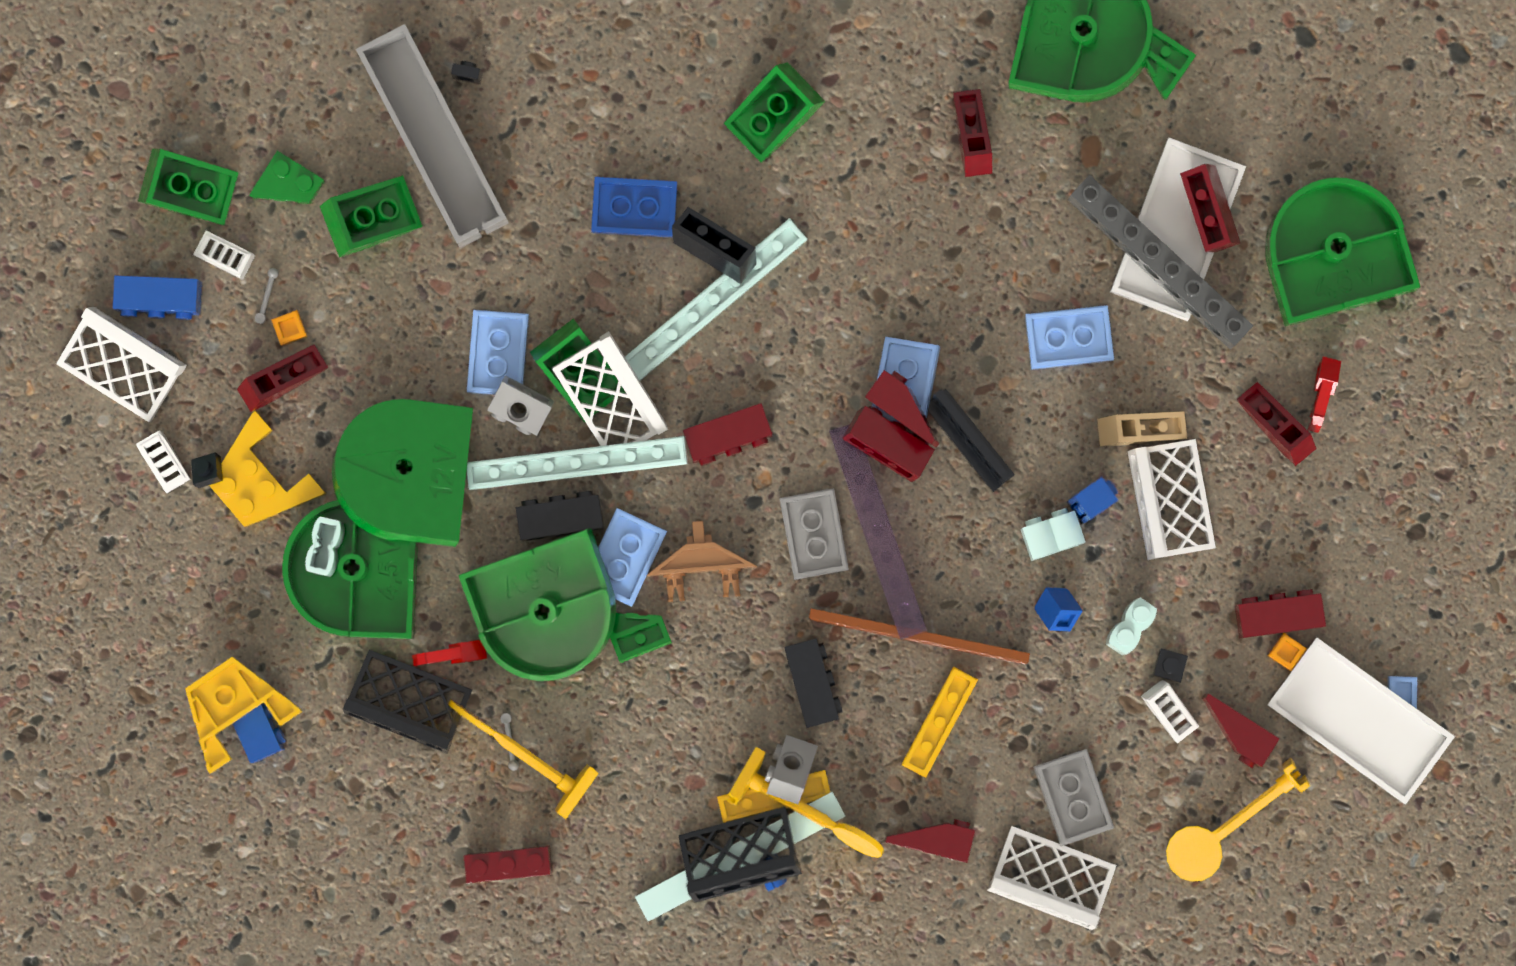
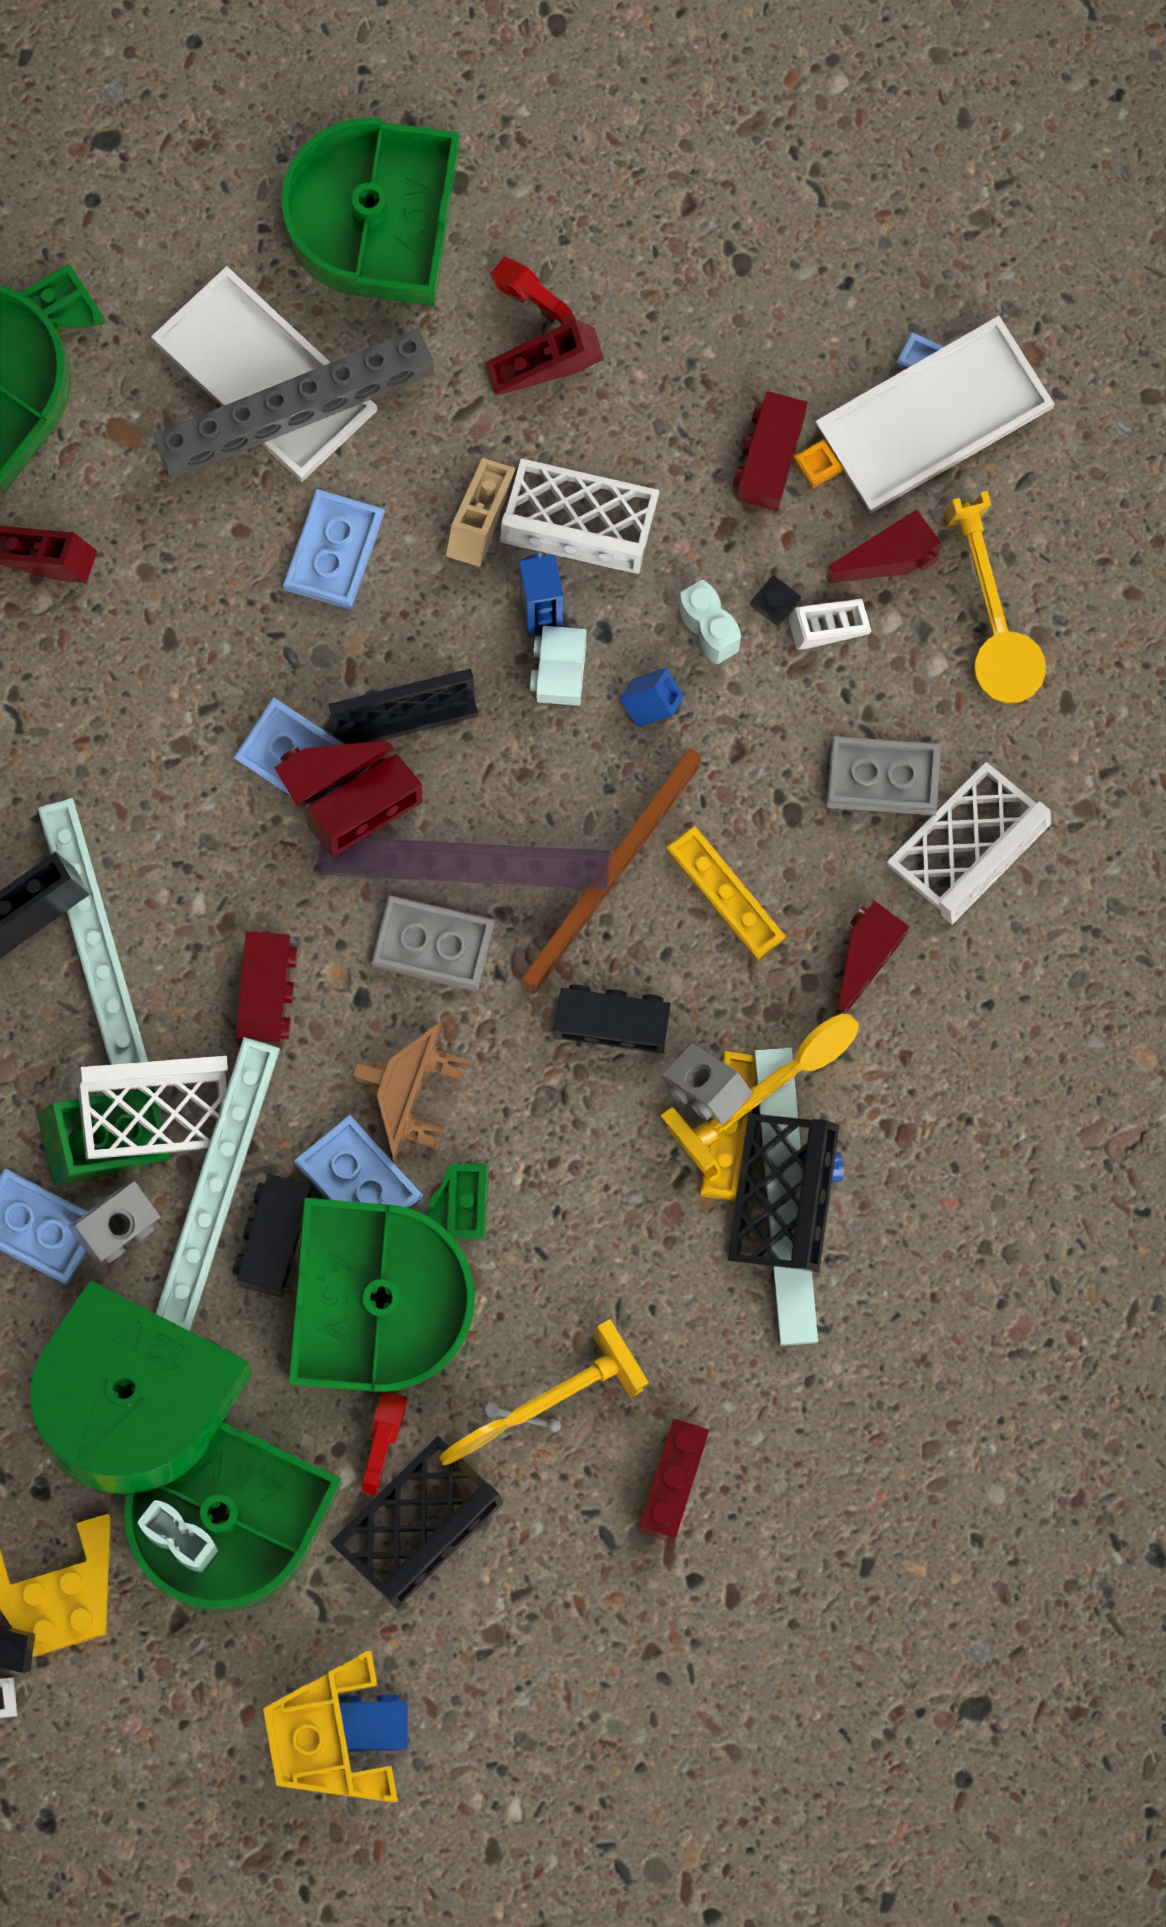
camera: 70 degrees left, 10 degrees down
(1210, 208) = (257, 320): dark red brick -> none

